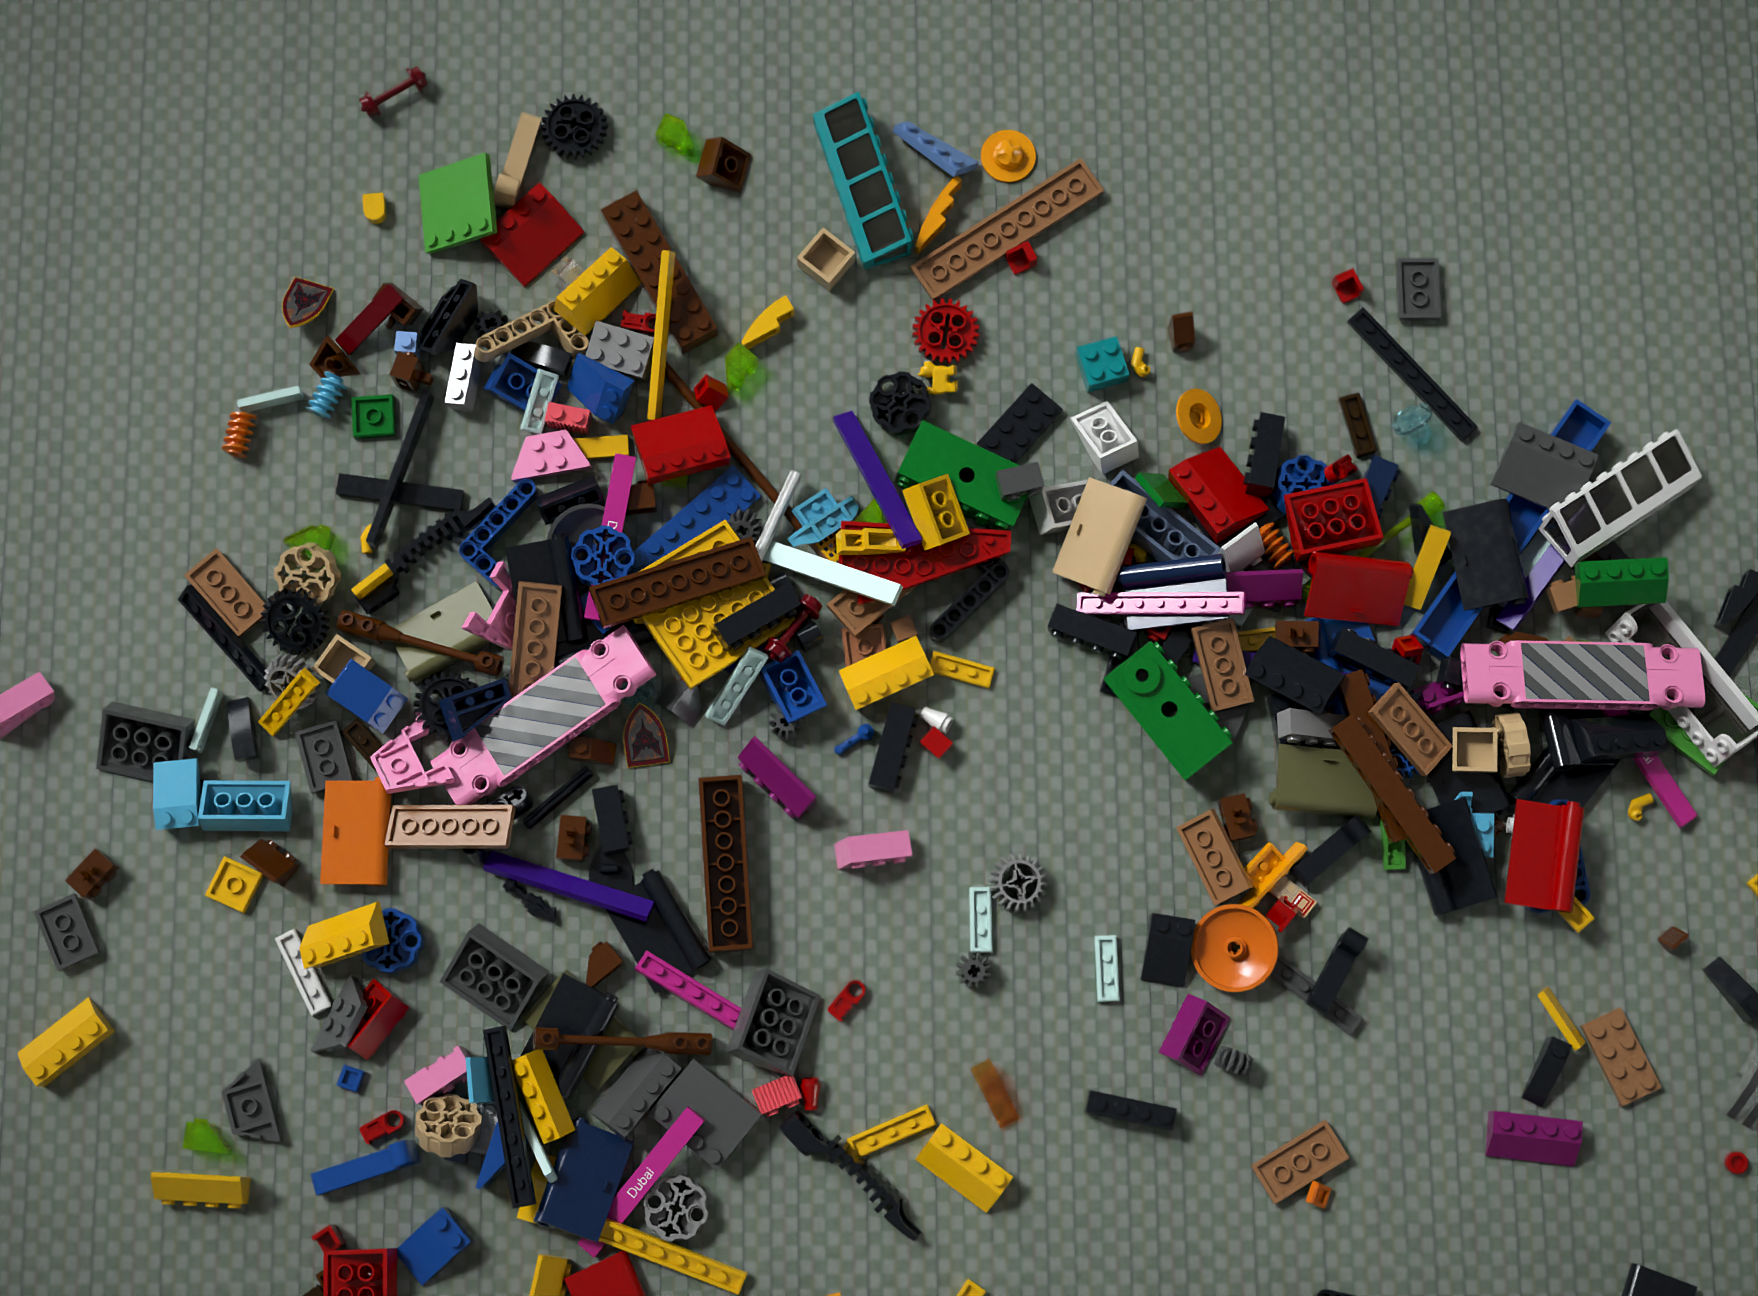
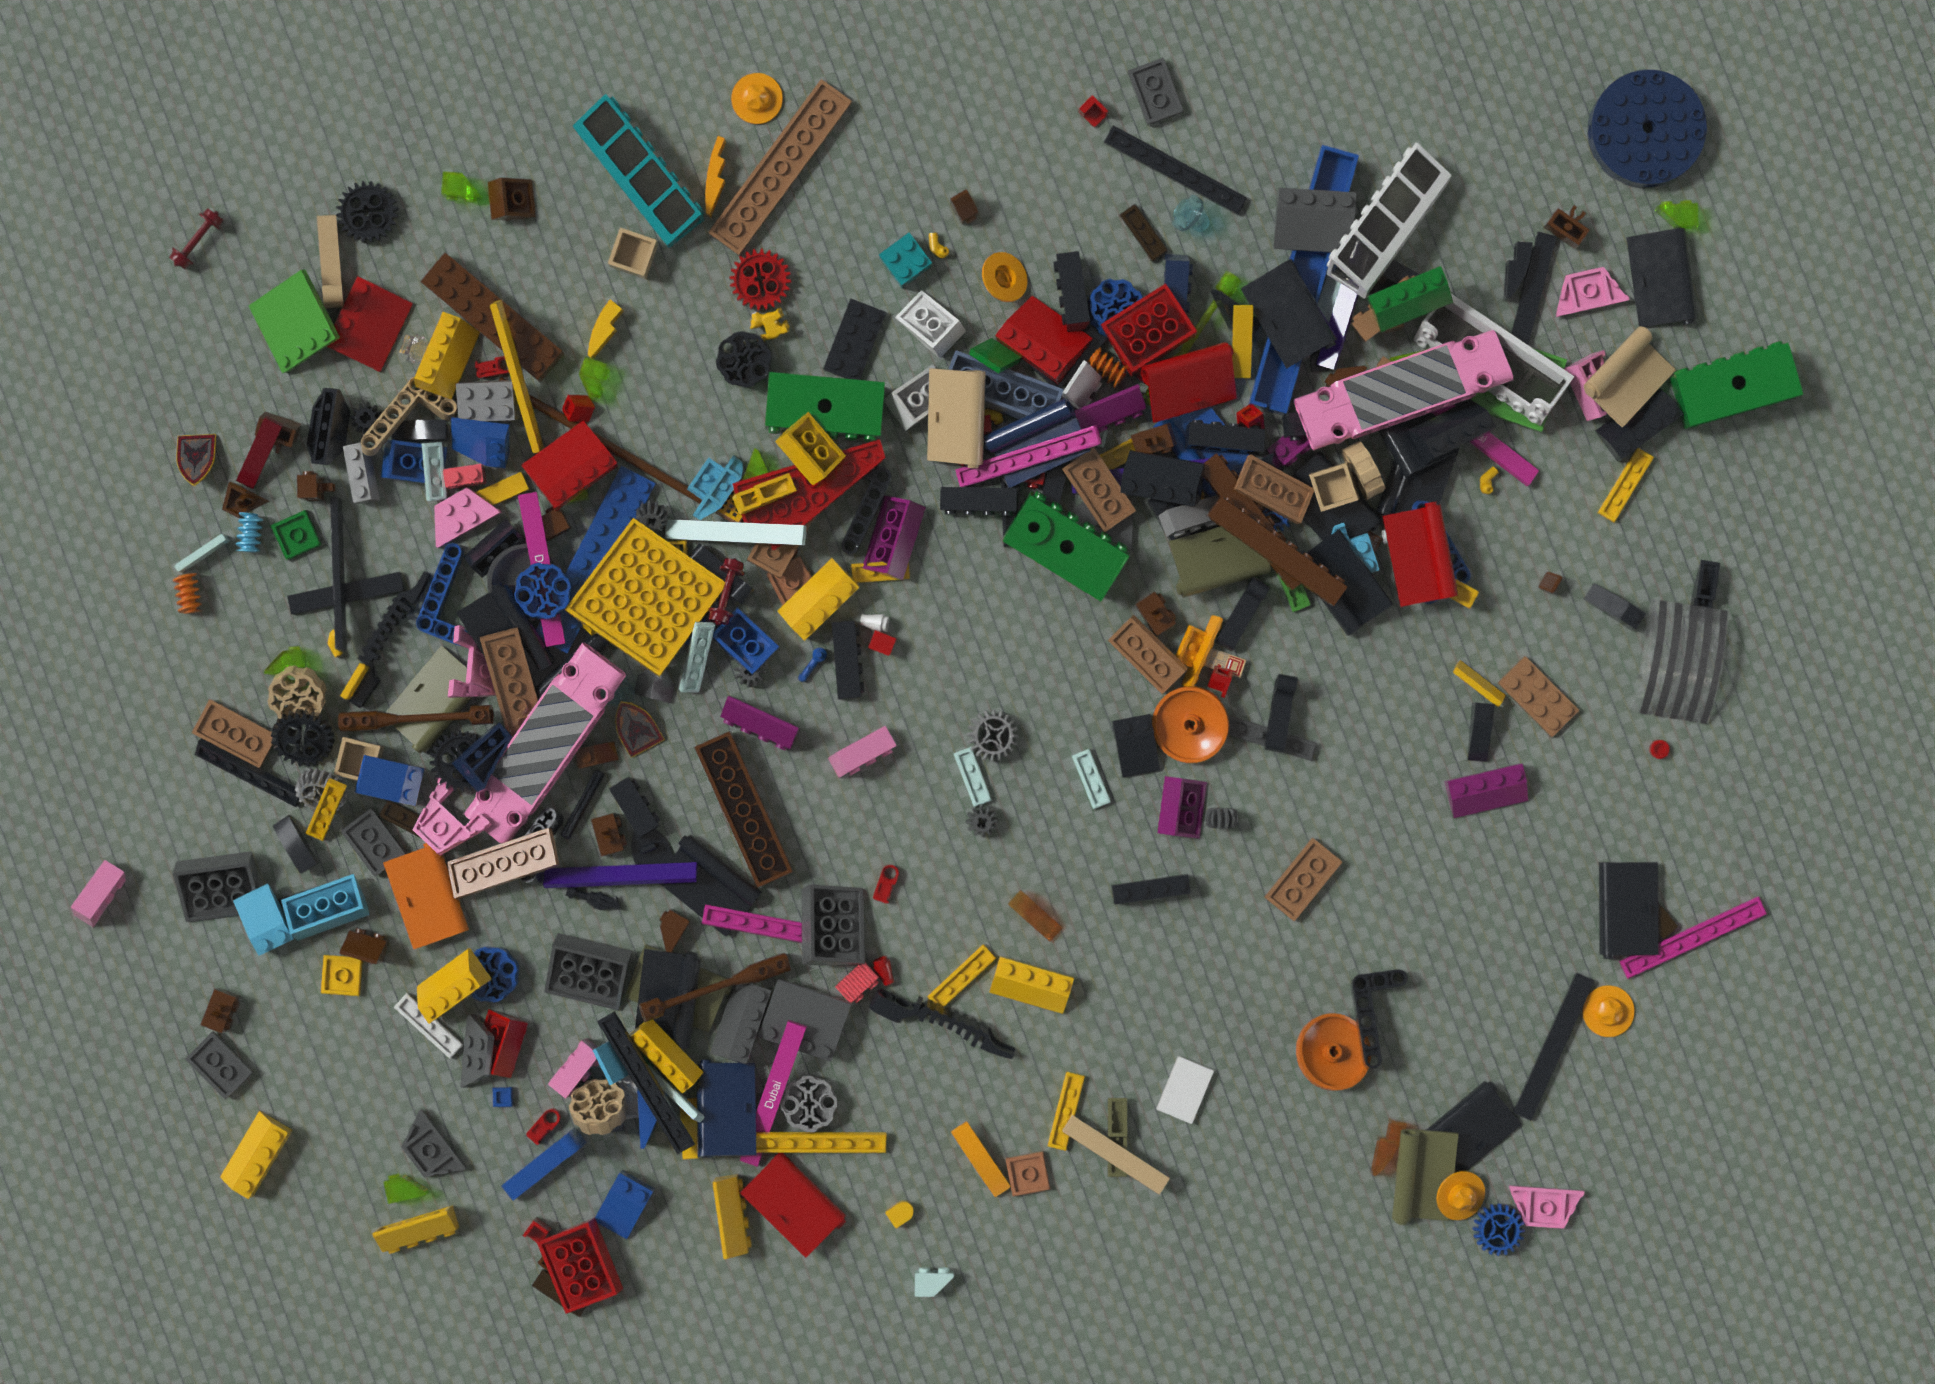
camera: 15 degrees left, 10 degrees up
(206, 720) = (262, 848): light aqua tile -> none
(374, 207) = (222, 349): yellow piece -> none
(407, 342) = (300, 462): light blue brick -> none
(677, 582) = (614, 589): reddish brown plate -> none
(756, 618) = (692, 595): black brick -> none
(777, 513) = (675, 498): white axle -> none
(877, 480) = (749, 435): dark purple tile -> none
(903, 628) = (819, 554): medium nougat tile -> none
(939, 152) = (697, 119): medium blue wing -> none
(989, 638) = (894, 536): none -> magenta slope
(1019, 481) = (871, 396): dark grey brick -> none
(1021, 258) = (801, 189): red panel -> none
(1318, 1194) = (1327, 900): orange tile -> none
(1339, 469) = (1141, 278): red piece -> none

